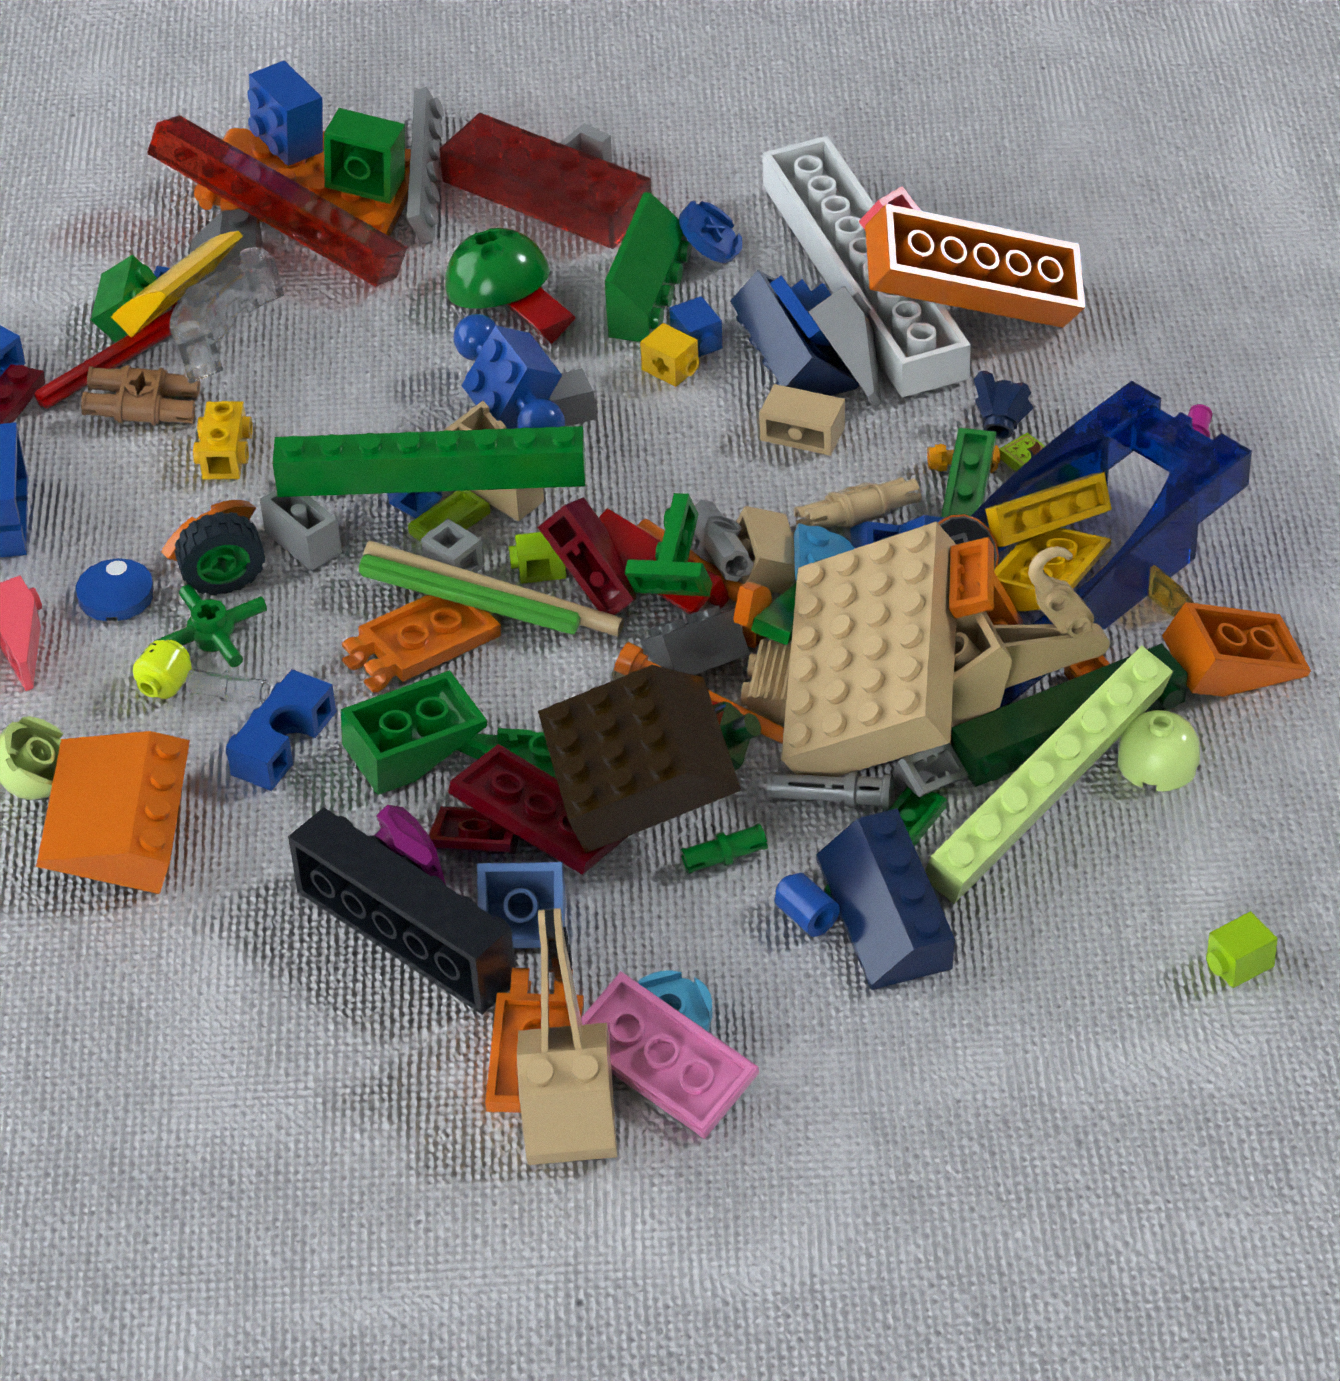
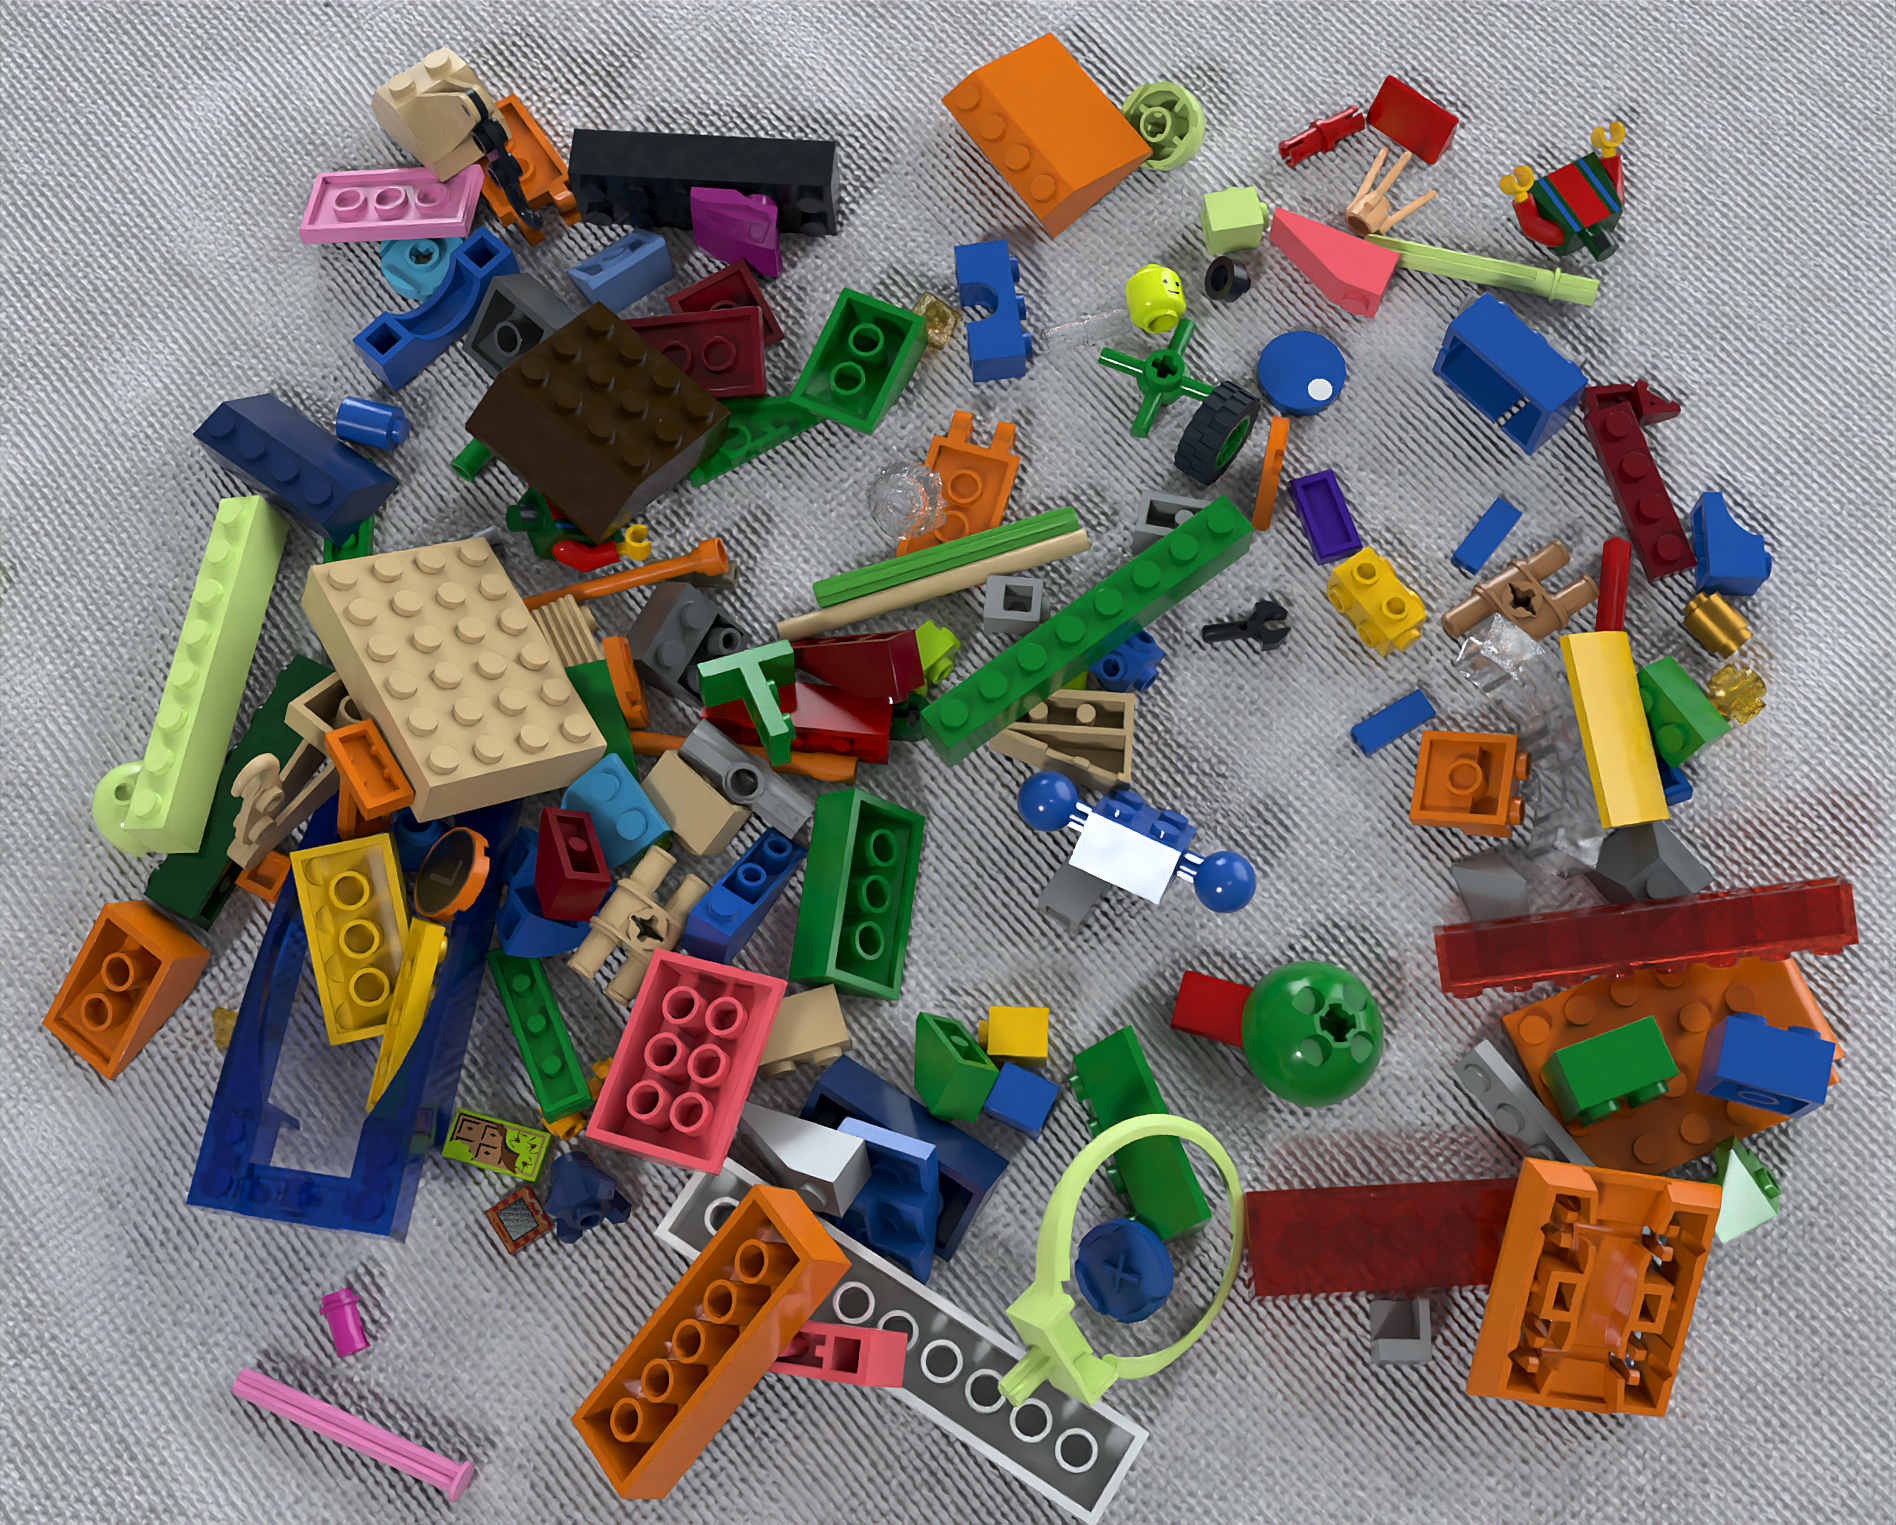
camera: 145 degrees right, 25 degrees up
(40, 331) = (1716, 624): none -> pearl gold brick
(52, 692) = (1233, 220): none -> yellowish green brick
(75, 293) = (1737, 693): none -> clear yellow gear
(100, 659) = (1226, 279): none -> black tile
(110, 448) = (1486, 536): none -> blue piece
(195, 501) = (1324, 517): none -> dark purple tile
(276, 330) = (1470, 782): none -> orange plate
(282, 392) = (1392, 722): none -> blue piece
(323, 289) = (1490, 888): none -> light grey slope
(330, 755) = (939, 318): none -> clear yellow slope
(351, 98) = (1748, 1190): none -> brick
(461, 637) = (906, 499): none -> clear hair
(474, 85) = (1590, 1283): none -> orange piece
(635, 901) = (513, 320): none -> dark grey slope
(708, 460) = (857, 895): none -> green slope
(723, 348) = (950, 1069): none -> green slope
(736, 939) = (404, 343): none -> blue arch
(773, 178) = (1043, 1309): none -> yellowish green brick
(789, 484) = (742, 898): none -> blue slope
(878, 515) = (569, 866): none -> dark red slope
(881, 409) = (686, 1062): none -> coral slope
(1049, 423) = (519, 1220): none -> tile
(1225, 380) = (354, 1432): none -> bright pink axle

